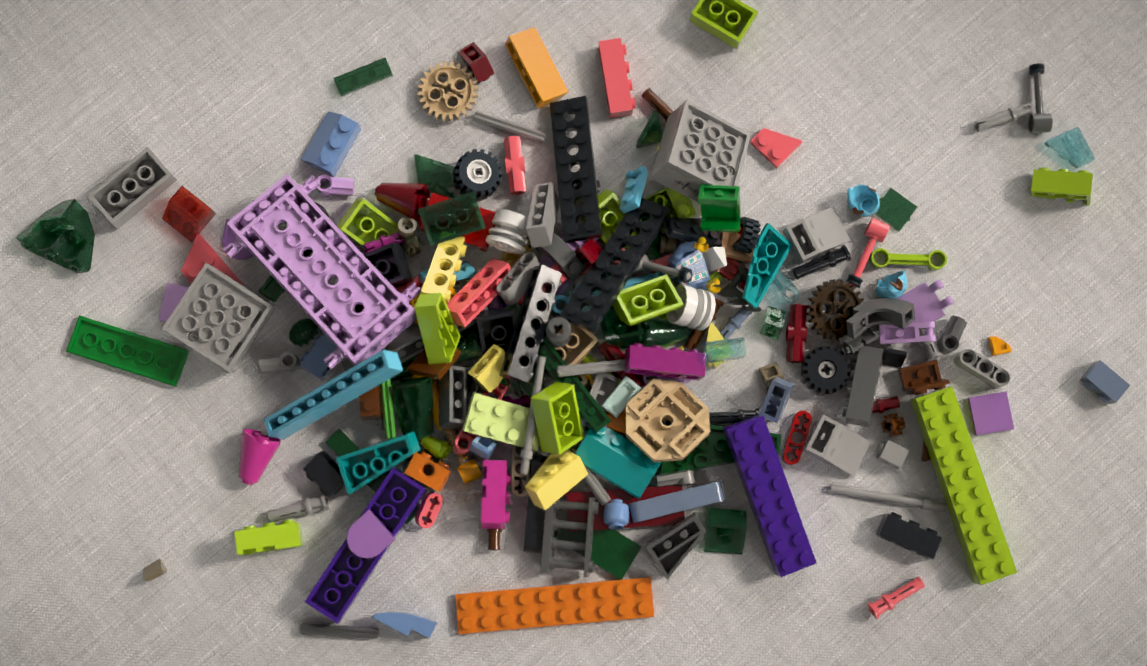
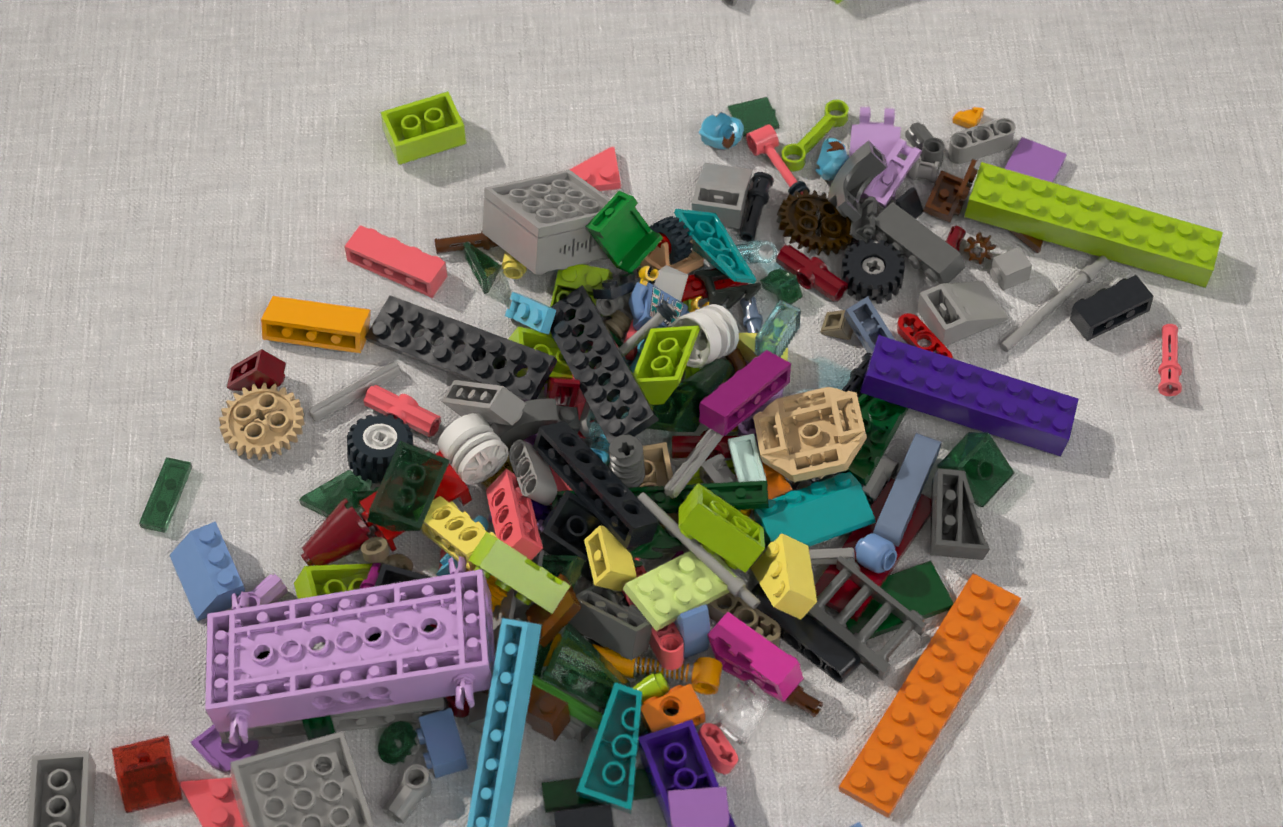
camera: 45 degrees left, 25 degrees down
(1104, 382) = (1077, 54): sand blue brick -> none

